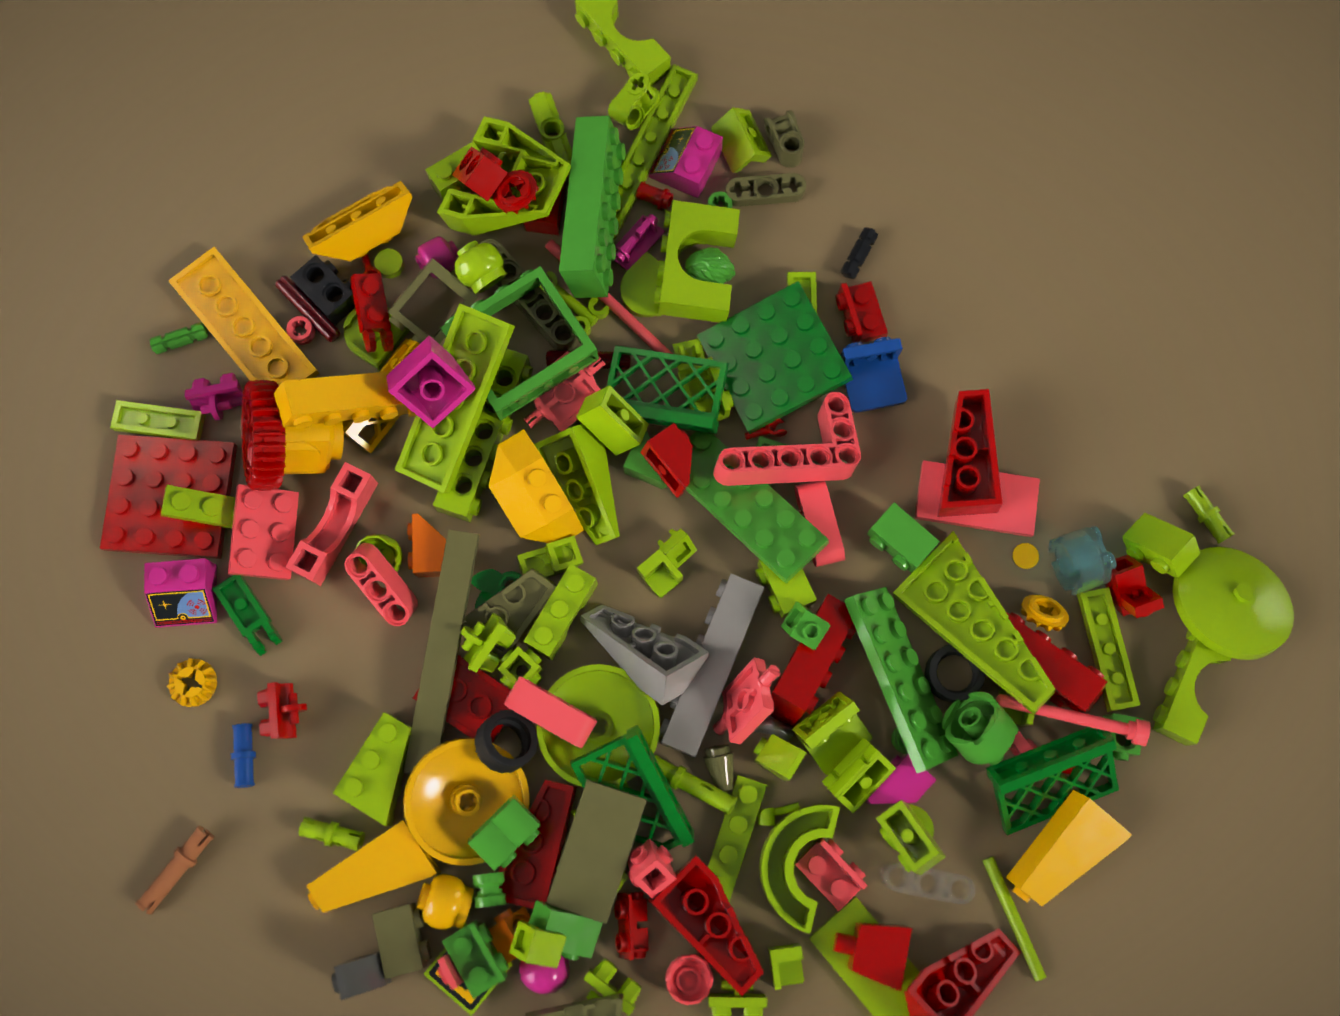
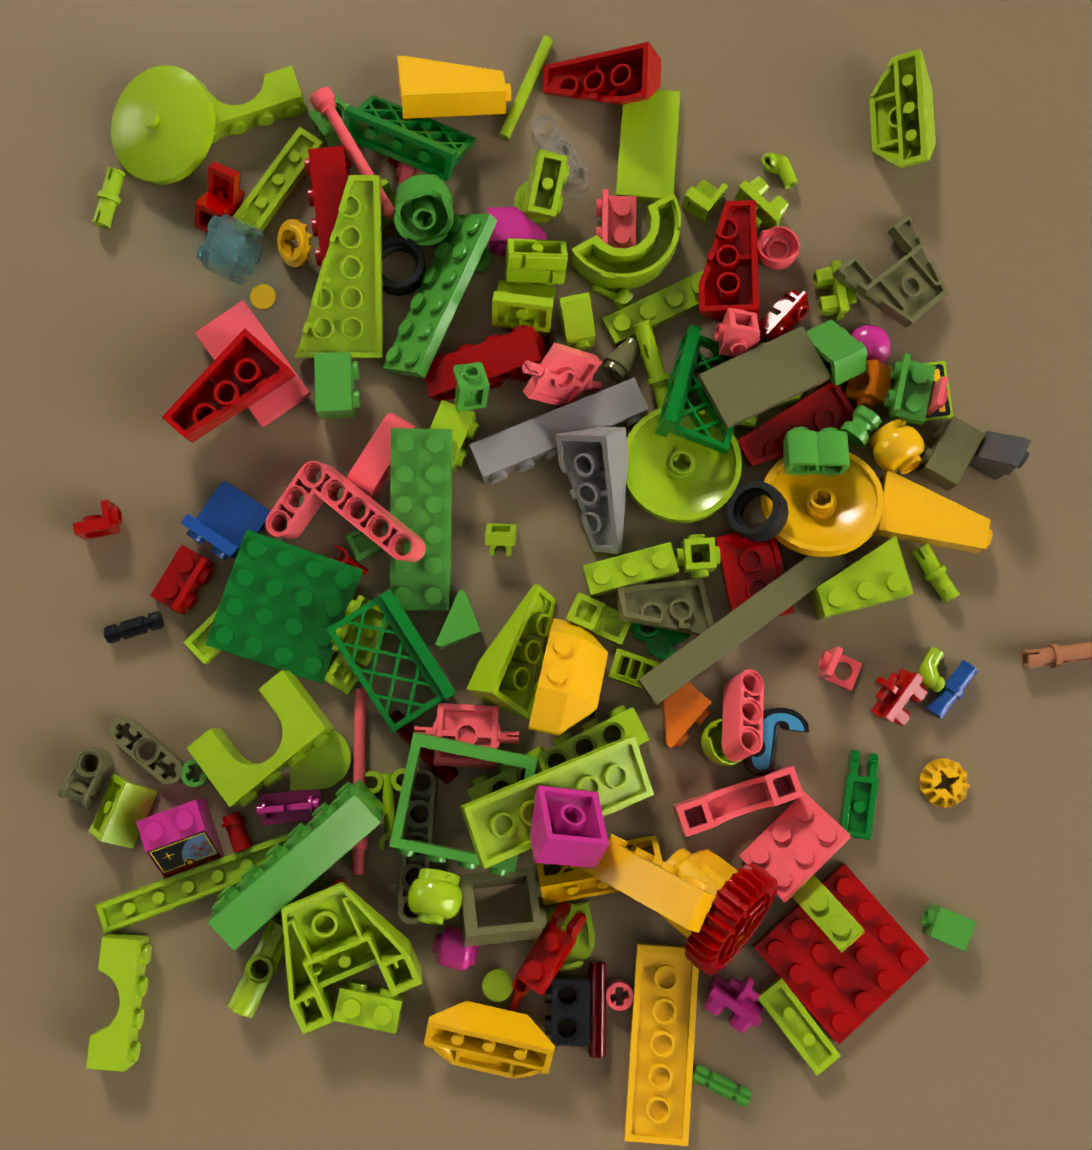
camera: 135 degrees left, 5 degrees up
(104, 581) = (947, 926): none -> bright green brick
(181, 592) = (895, 860): slope -> none
(273, 753) = (929, 671): none -> lime arm
(354, 688) = (828, 663): none -> coral bracket
(358, 605) = (773, 720): none -> animal
(480, 172) = (357, 977): red brick -> none
(482, 640) = (706, 598): lime hips -> none
(500, 555) = (617, 662): none -> lime slope
(523, 182) = (357, 939): red gear -> none
(537, 945) = (867, 352): lime panel -> none
(550, 712) = (708, 498): coral beam -> none
(612, 420) = (455, 670): lime brick -> none
(634, 103) = (172, 928): lime piece -> none
(659, 573) = (531, 531): lime panel -> none
(670, 457) = (440, 597): red slope -> none
(710, 266) = (258, 726): bright green hair -> none
(876, 951) = (637, 145): red torso -> none
(951, 299) = (97, 526): none -> red bracket
(1161, 545) = (167, 205): lime brick -> none

